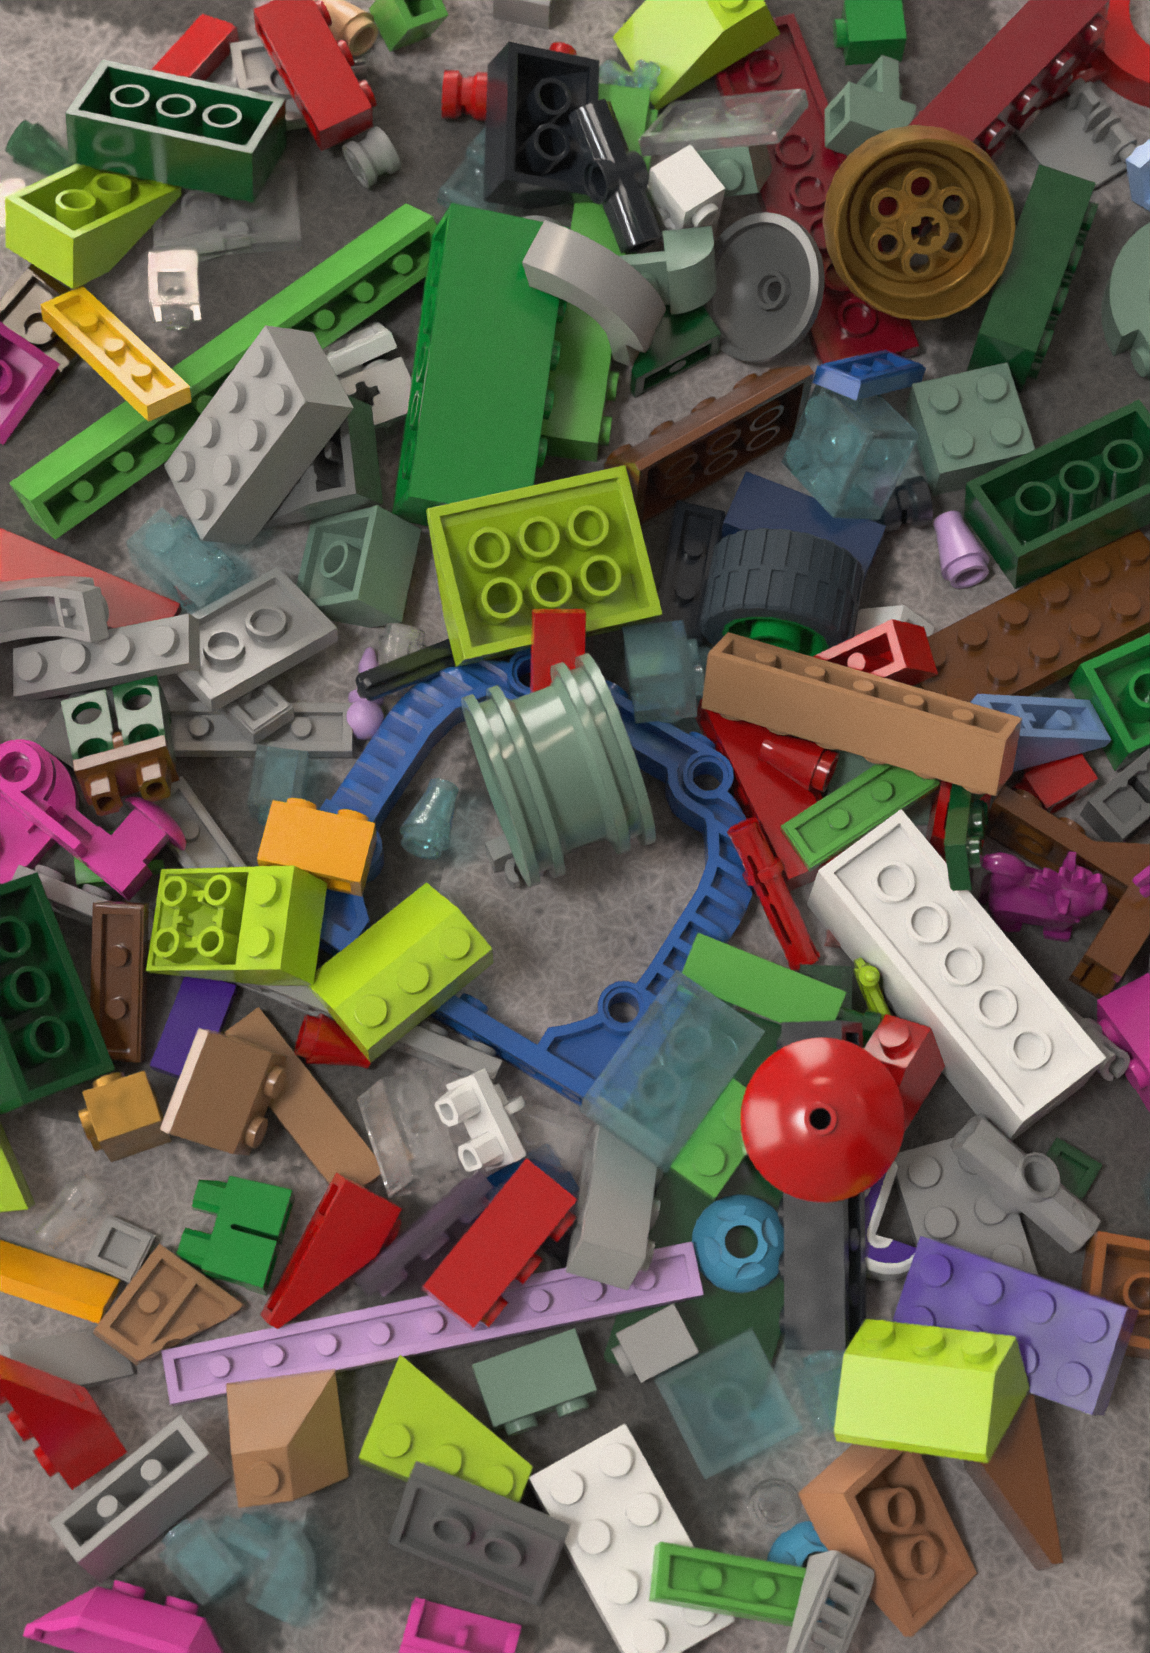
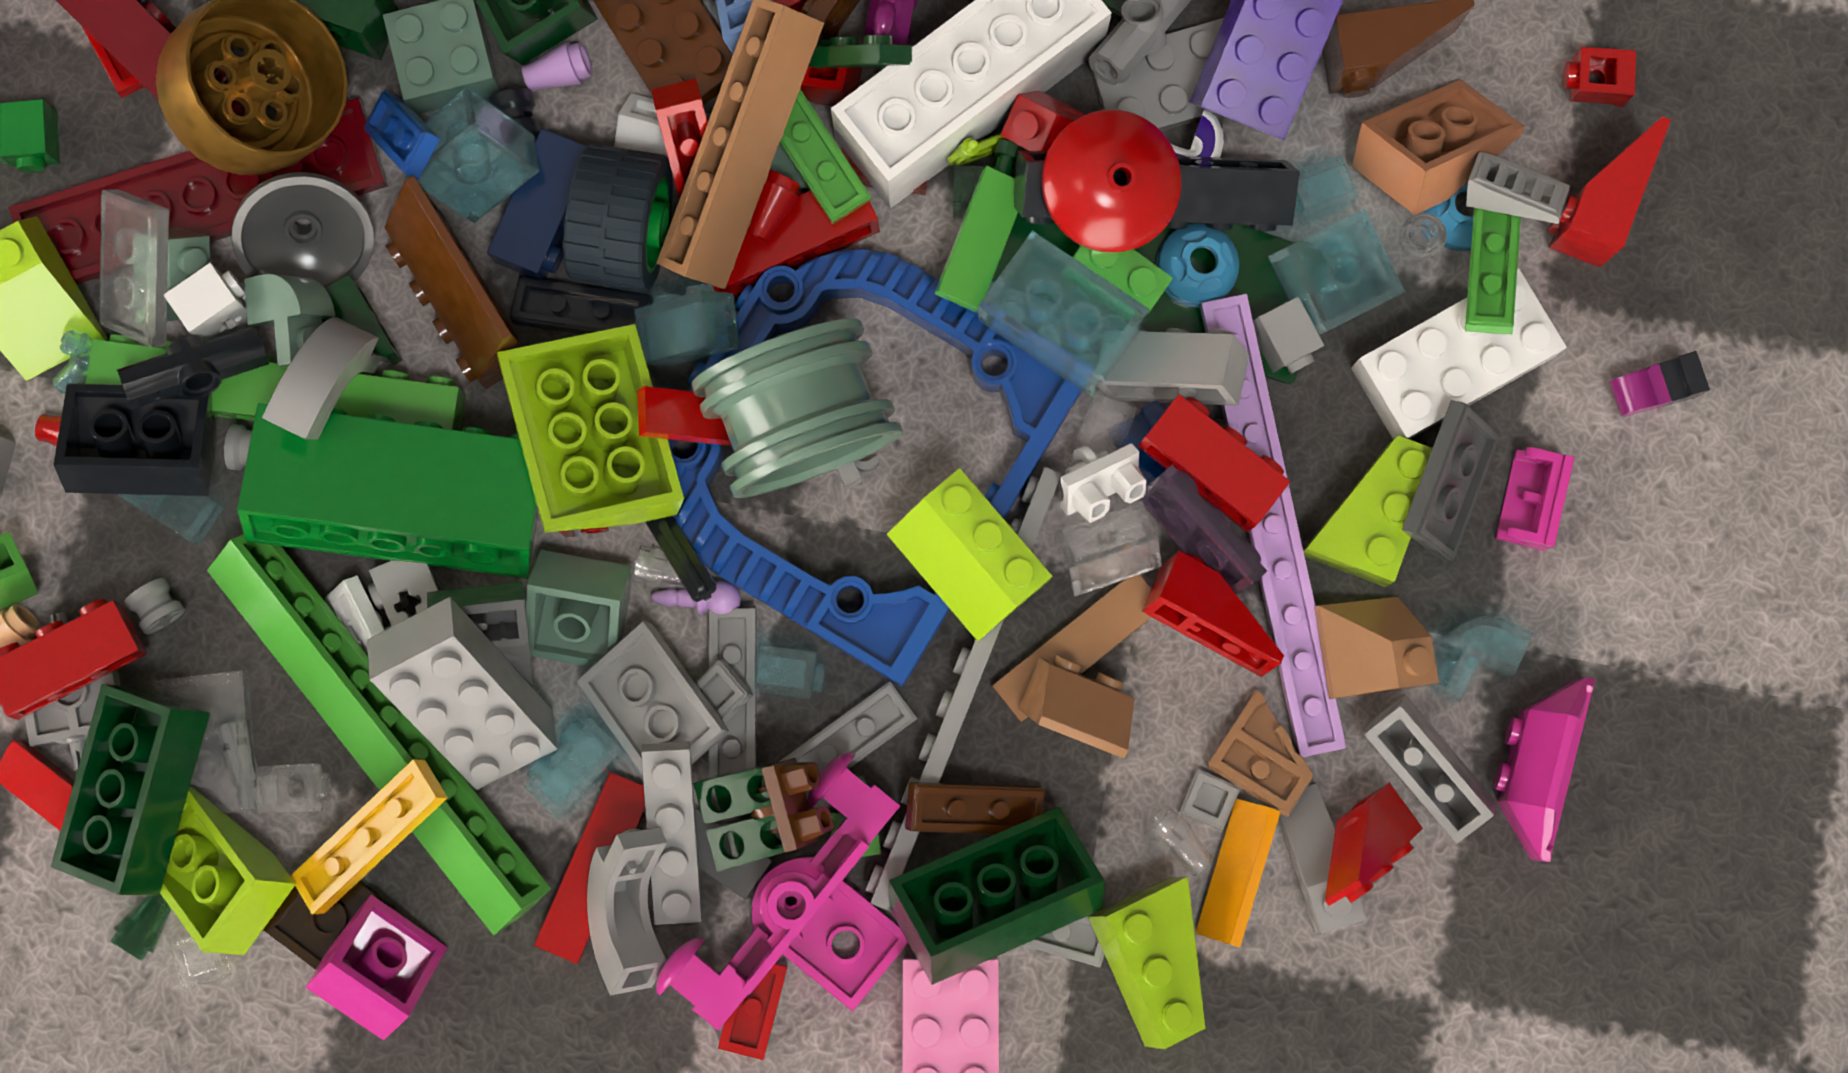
camera: 85 degrees left, 10 degrees up
(123, 1115) = (1101, 797): pearl gold brick -> none
(197, 1005) = (1009, 743): dark purple tile -> none
(201, 1561) = (1477, 716): clear light blue brick -> none
(238, 924) = (930, 701): lime slope -> none
(245, 1233) = (1175, 692): green hips -> none
(321, 843) = (857, 629): light orange brick -> none
(326, 1043) = (1025, 626): red cone -> none
(430, 823) = (831, 529): clear light blue cone -> none
(464, 95) = (89, 515): red wheel -> none
(535, 1382) = (1318, 438): sand green brick -> none
(765, 876) = (875, 237): red pin -> none
(867, 108) = (119, 136): sand green brick -> none
(929, 1389) = (1339, 99): lime slope -> none

